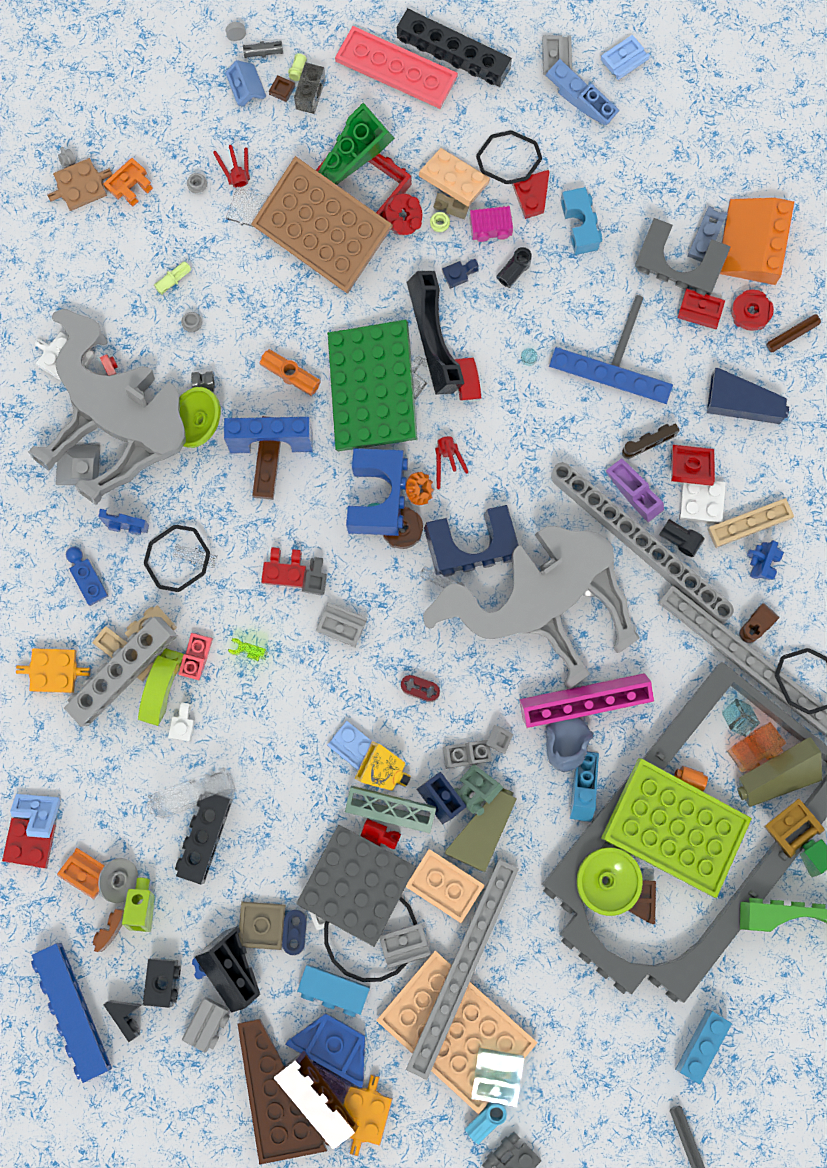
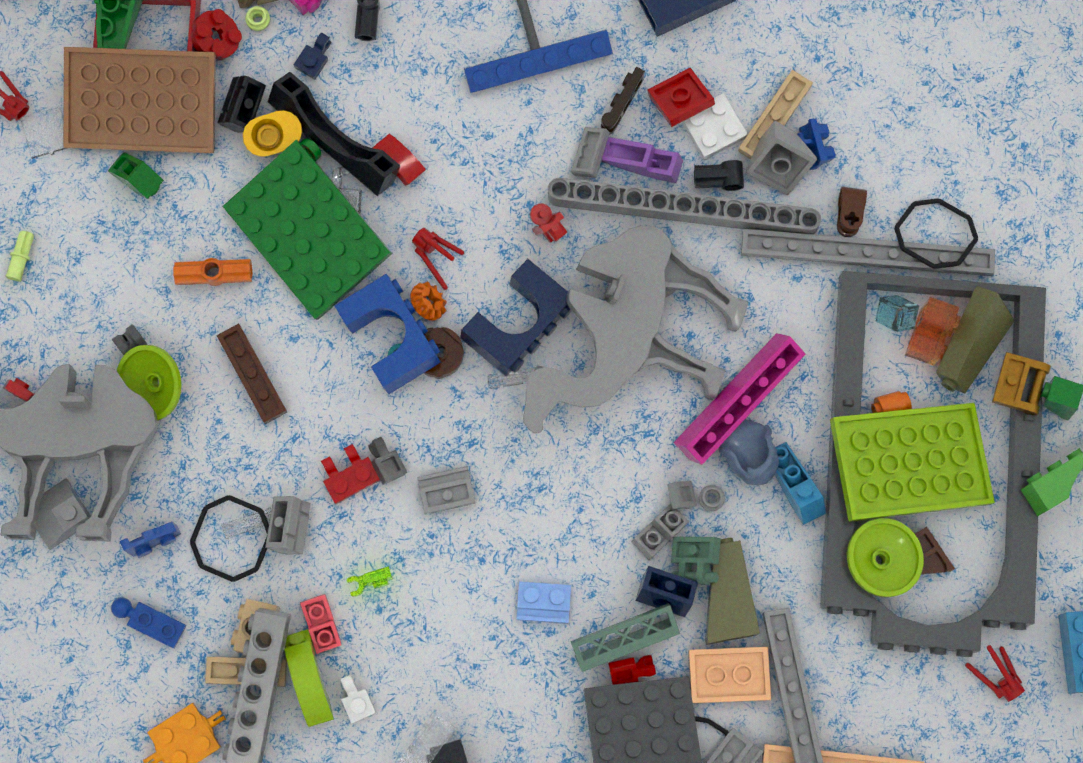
camera: 35 degrees left, 0 degrees up
(191, 322) = (72, 288): light grey plate -> none
(219, 575) = (288, 525): none -> light grey brick
(242, 432) = (212, 362): blue arch -> none
(285, 274) = (136, 175): none -> green slope
(382, 768) = (588, 603): yellow torso -> none
(387, 272) = (241, 103): none -> black brick
(393, 304) = (271, 133): none -> yellow piece
(413, 333) = (312, 148): none -> green tile
(421, 683) = (566, 493): dark red beam -> none
(525, 752) = (719, 494): none -> light grey plate
(532, 359) = (449, 96): clear light blue hinge -> none
(537, 488) = (548, 222): none -> red hips
(602, 461) = (590, 152): none -> light grey plate
(636, 1033) = (1009, 685): none -> red plant
(733, 554) = (780, 158): none -> light grey slope

